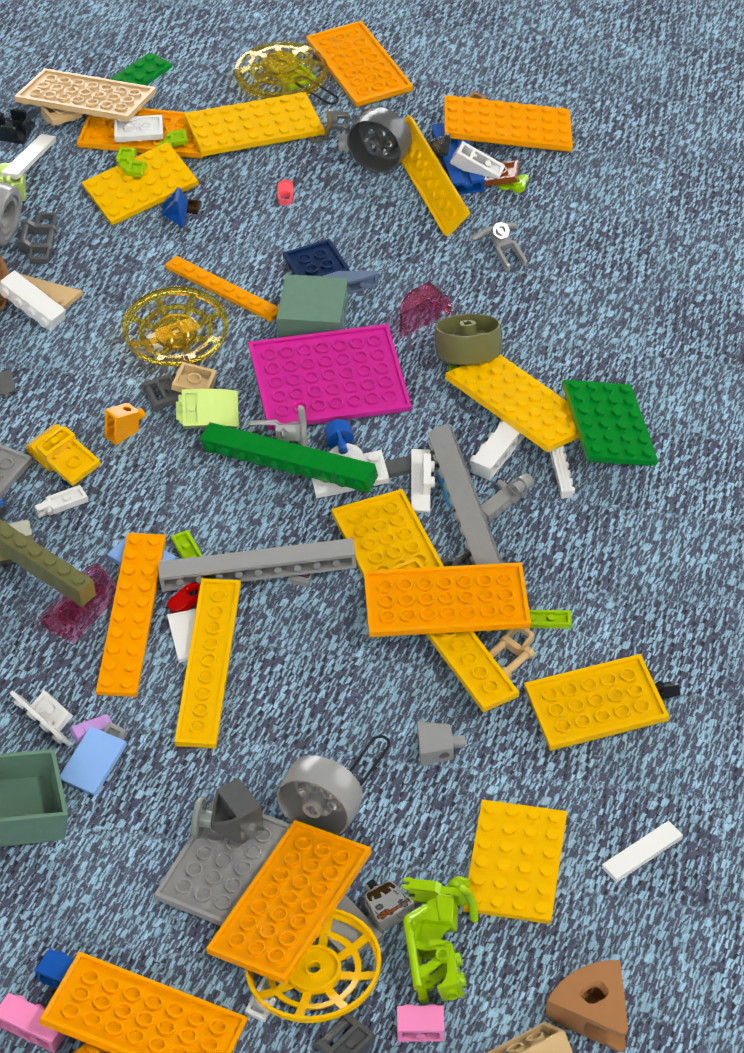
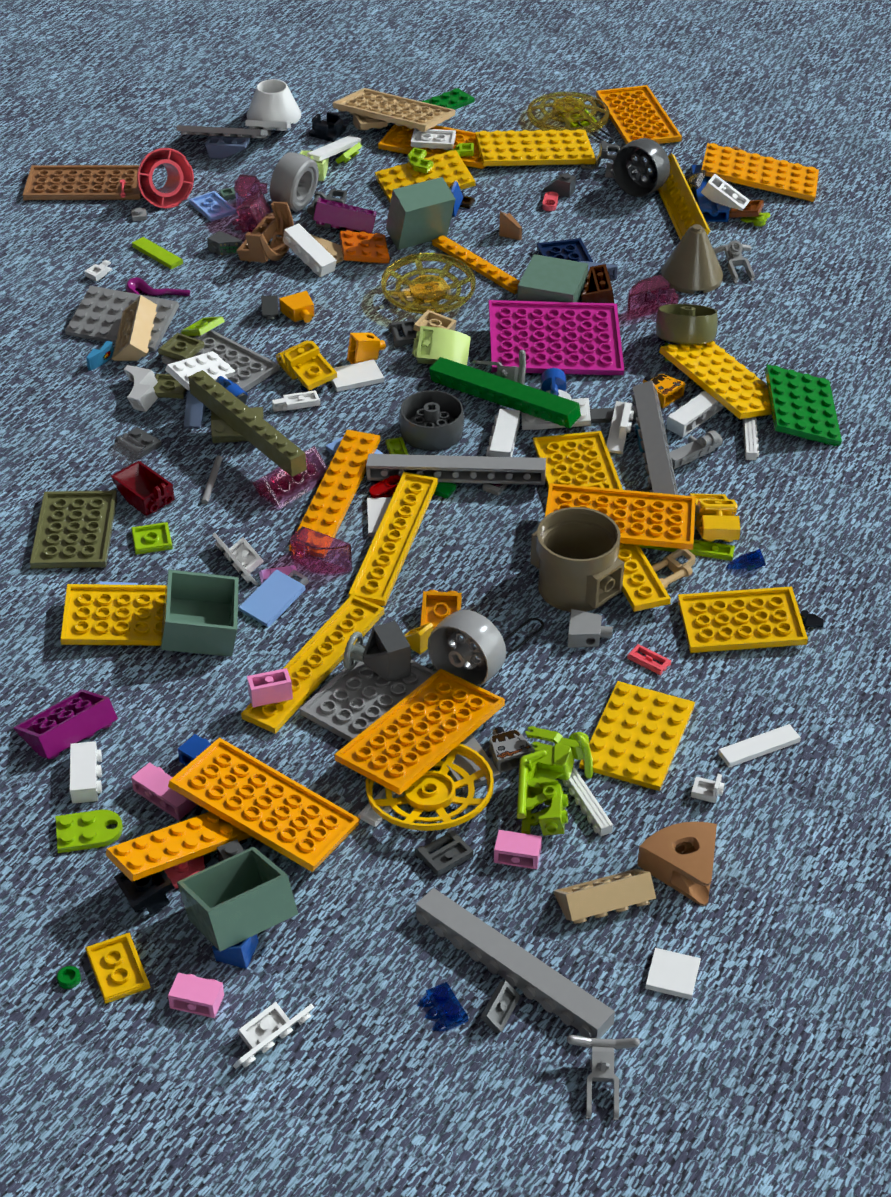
camera: 10 degrees right, 5 degrees down
(35, 376) = (297, 307): none -> light orange torso
(48, 157) = (345, 157): none -> lime plate
(61, 247) = (344, 216): none -> magenta slope
(91, 285) = (364, 247): none -> orange plate
(118, 878) = (269, 687): none -> bright pink brick
(121, 456) = (357, 375): none -> white tile
(132, 697) = (320, 553): none -> clear pink piece
(148, 238) = (420, 213): none -> sand green container
(155, 835) = (317, 661): none -> yellow plate
(217, 492) = (431, 409): none -> dark grey wheel
(248, 235) = (509, 227): none -> medium nougat slope
(249, 589) = (445, 489): none -> green tile
(262, 783) = (419, 637): none -> yellow slope
(278, 745) = (439, 605): none -> light orange plate
(294, 169) = (563, 185): none -> dark grey slope
(300, 511) = (504, 433): none -> white brick
(362, 304) = (598, 286): none -> reddish brown wedge
(414, 636) = (577, 558): none -> dark tan cylinder
(459, 260) = (693, 264): none -> dark tan cone
(461, 421) = (668, 388): none -> light orange torso
(482, 954) = (588, 804): none -> white piece
(508, 769) = (647, 661): none -> coral tile
(545, 579) = (716, 517): none -> yellow piece
(589, 627) = (750, 561): none -> clear blue plate
(600, 914) = (707, 789): none -> white bracket

